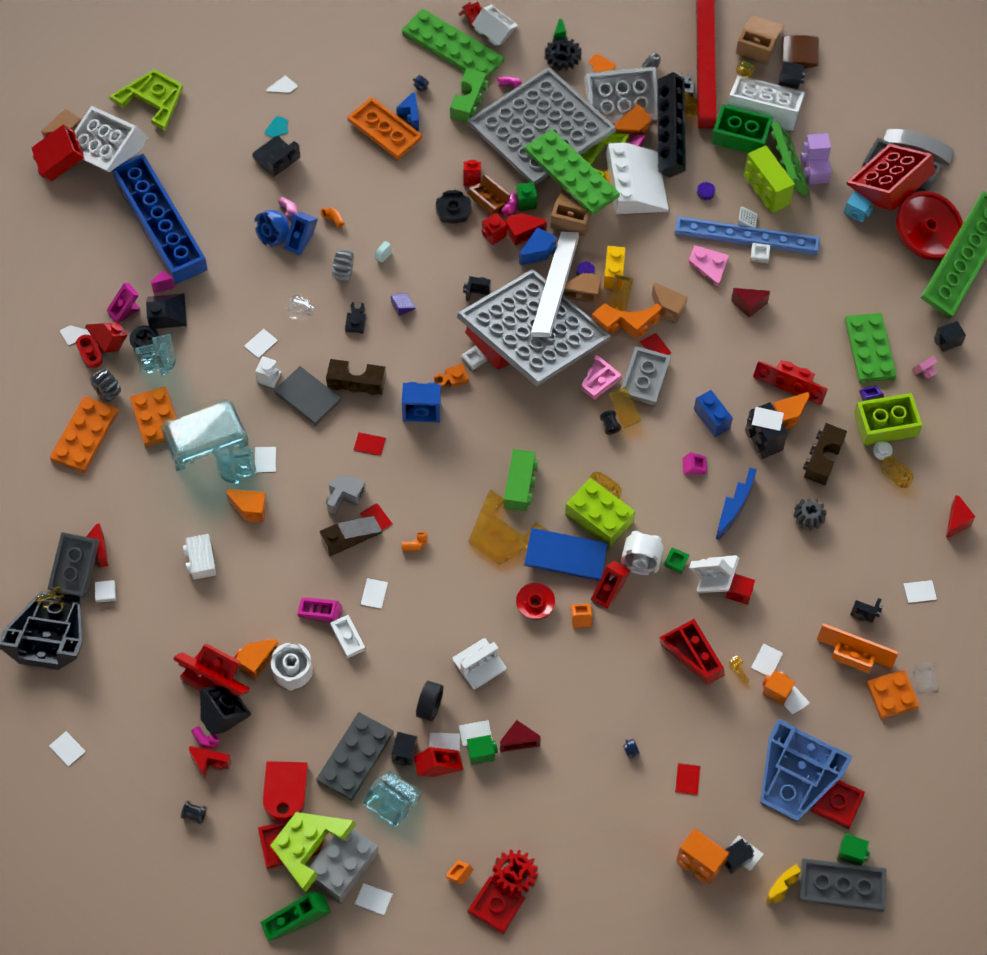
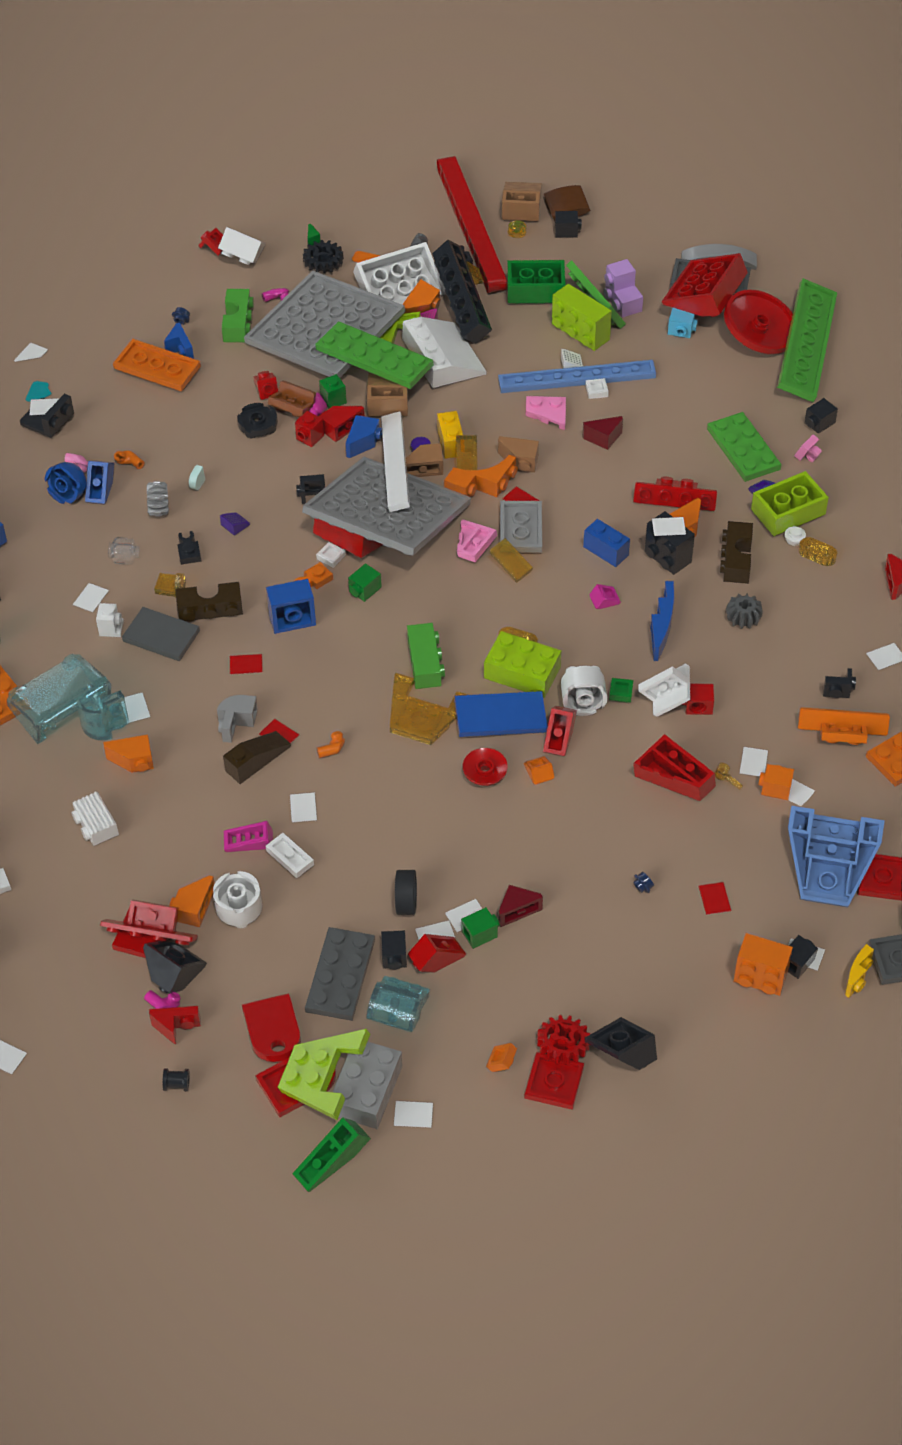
camera: 15 degrees left, 10 degrees down
(275, 144) = (41, 406): none -> white sticker
(329, 349) = (168, 583): none -> clear yellow tile
(451, 43) = (199, 274): bright green plate -> none
(479, 663) = (446, 842): white bracket -> none
(492, 394) = (364, 582): none -> green brick
(562, 892) = (626, 1043): none -> black slope
(614, 424) = (501, 578): black bush -> none
(706, 190) = (519, 345): dark purple tile -> none
(767, 99) = (552, 249): white slope -> none

